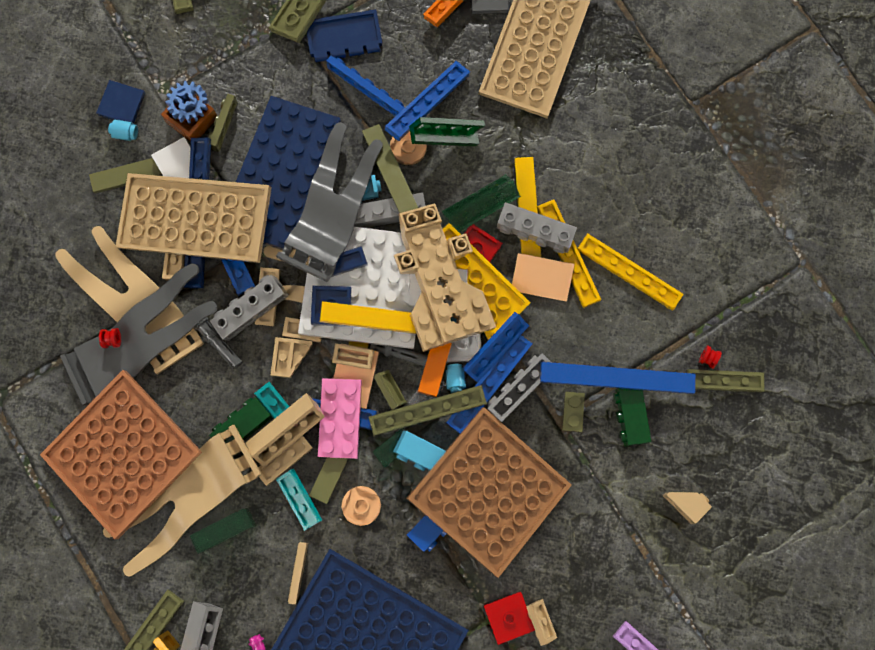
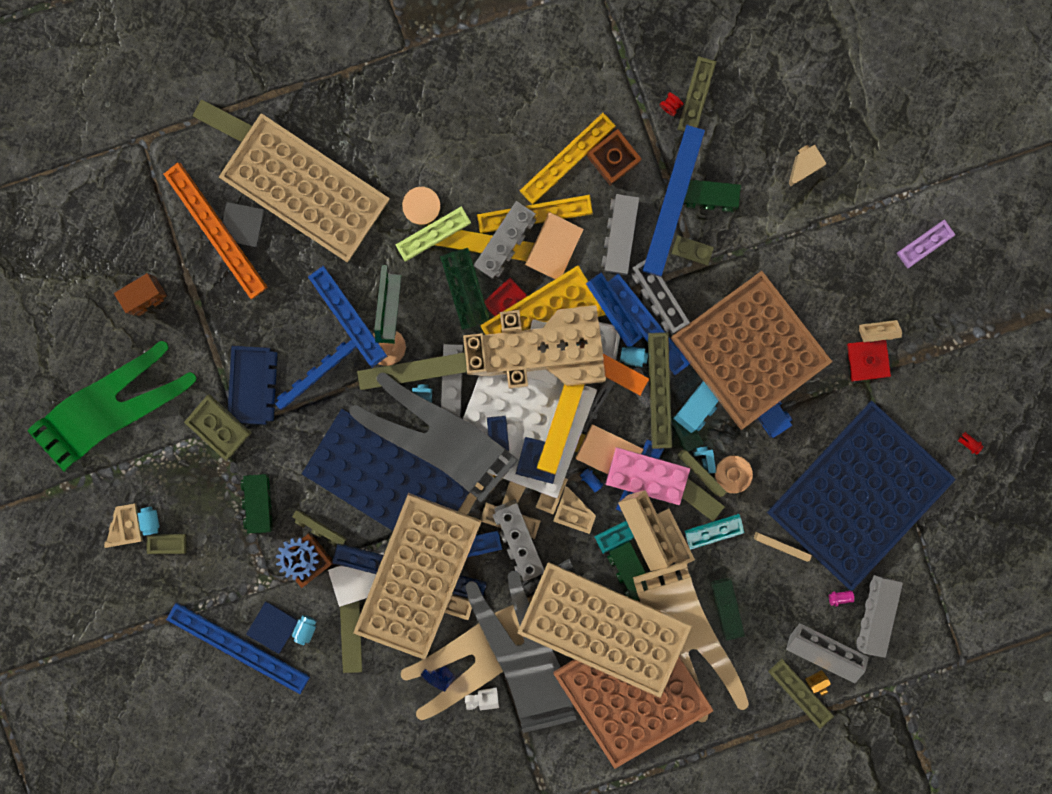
camera: 75 degrees left, 10 degrees up
(86, 313) = (485, 699): none -> white plate
(95, 78) = (238, 648): none -> blue tile
(97, 262) = (439, 679): none -> clear blue bracket
(110, 338) = (519, 680): red wheel -> none
(174, 407) = (604, 629): none -> tan plate
(234, 63) = (257, 503): none -> dark green brick
(324, 365) = (592, 481): none -> blue pin
(354, 470) = (703, 475): none -> olive tile
(368, 476) = (708, 462): none -> medium azure bracket
(369, 358) = (583, 450): tan tile -> none
(390, 389) = (630, 421): olive tile -> none
(525, 162) = (433, 234): none -> yellowish green tile
(548, 147) = (421, 205): none -> light nougat tile
(571, 337) = (621, 234): none -> light grey brick
(643, 312) = (614, 157): none -> dark orange brick

